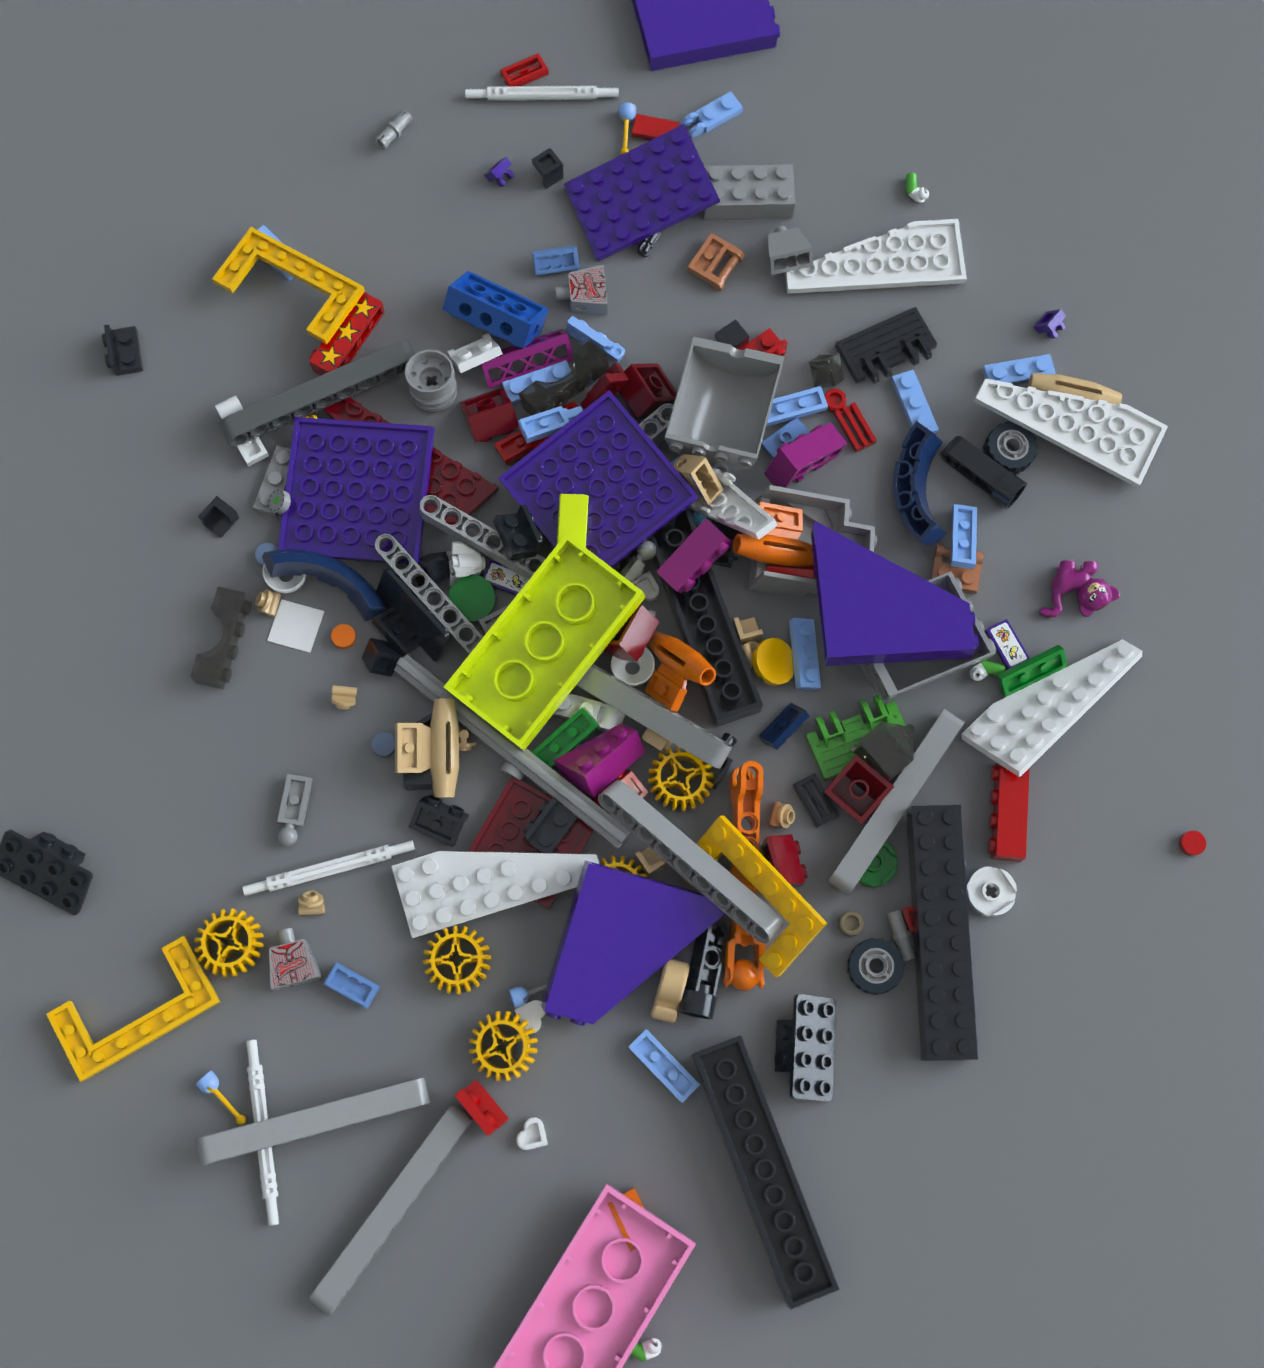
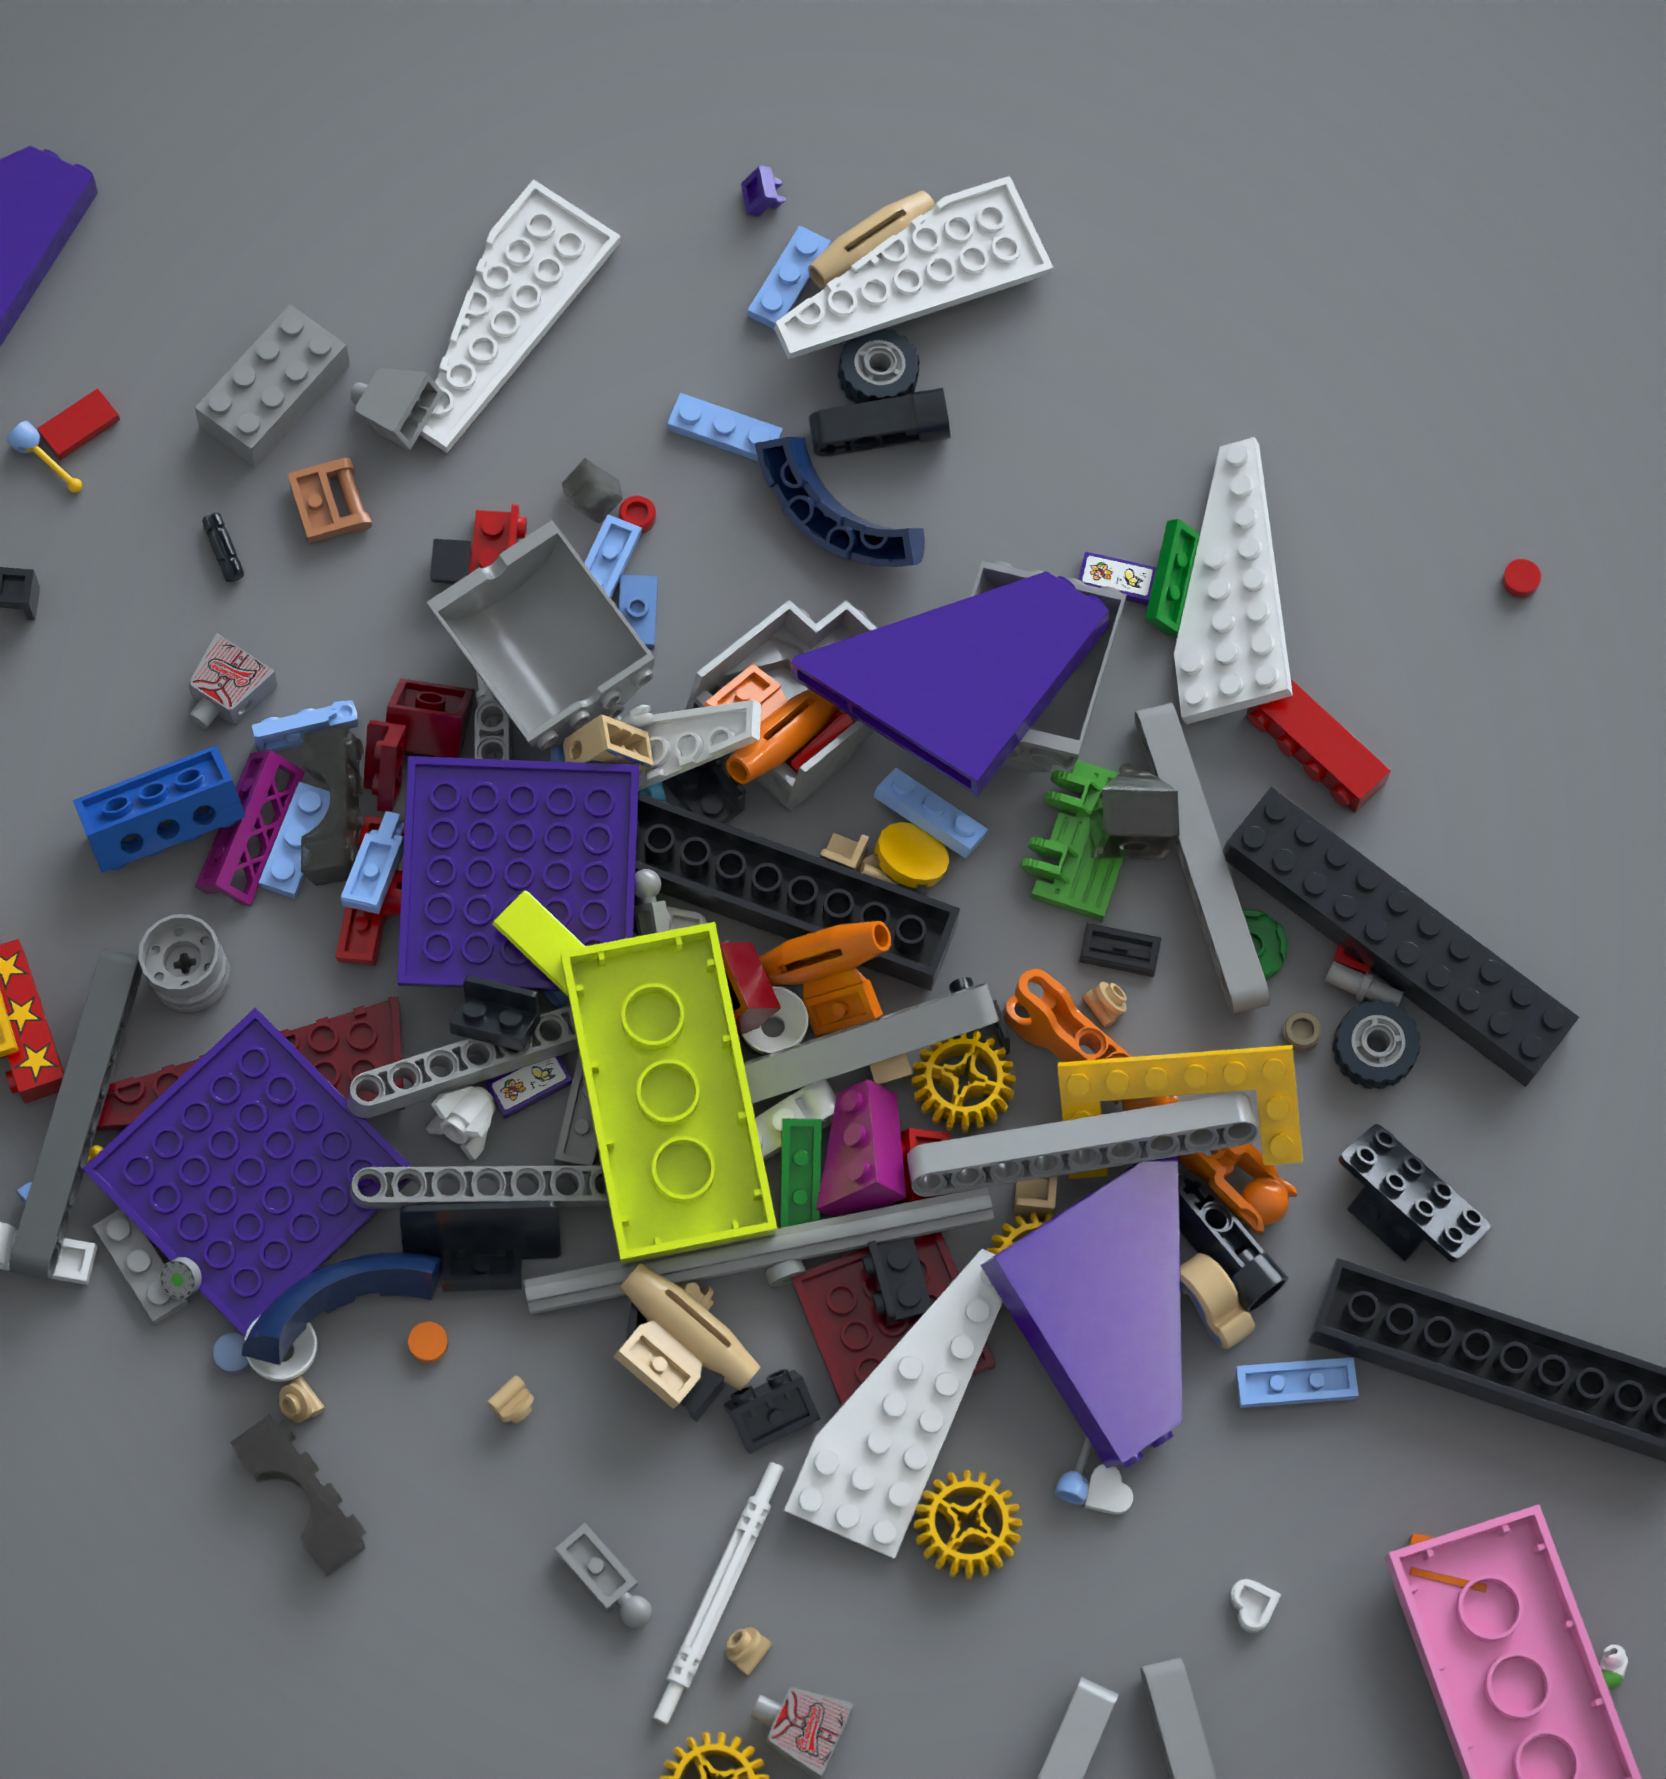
camera: 50 degrees left, 5 degrees down
(218, 517) = (128, 1373): black panel -> none
(295, 626) = (359, 1392): white sticker -> none
(351, 985) = (893, 1678): medium blue plate -> none
(380, 657) = (498, 1316): black panel -> none
(383, 744) = (614, 1402): sand blue tile -> none
(435, 566) = (435, 1150): black panel -> none
(473, 597) = (518, 1139): green tile -> none
(474, 353) = (193, 880): white plate -> none
(482, 1107) = (1174, 1636): red bracket -> none
(489, 415) = (289, 931): dark red slope -> none
(498, 1034) = (1127, 1516): yellow gear -> none
(555, 260) = (151, 686): medium blue plate -> none
(641, 192) = (158, 510): dark purple plate -> none
(694, 556) = (713, 832): magenta wedge -> none
(713, 114) = (123, 339): light blue hinge -> none
(783, 854) = (1159, 1034): dark red slope -> none
(784, 726) = (1000, 909): dark blue plate -> none
(805, 454) = (682, 607): magenta wedge -> none
(858, 788) = (1152, 885): dark red slope -> none
(863, 424) = (693, 507): red tile -> none
(885, 345) = (618, 400): black hinge -> none
(916, 193) = (446, 198): arm -> none
(963, 536) = (944, 513): light blue plate -> none
(968, 577) = (964, 571): nougat plate -> none
(985, 668) = (1124, 635): arm -> none
(986, 904) = (1411, 831): white plate -> none
(1092, 593) = (1136, 431): magenta animal -> none

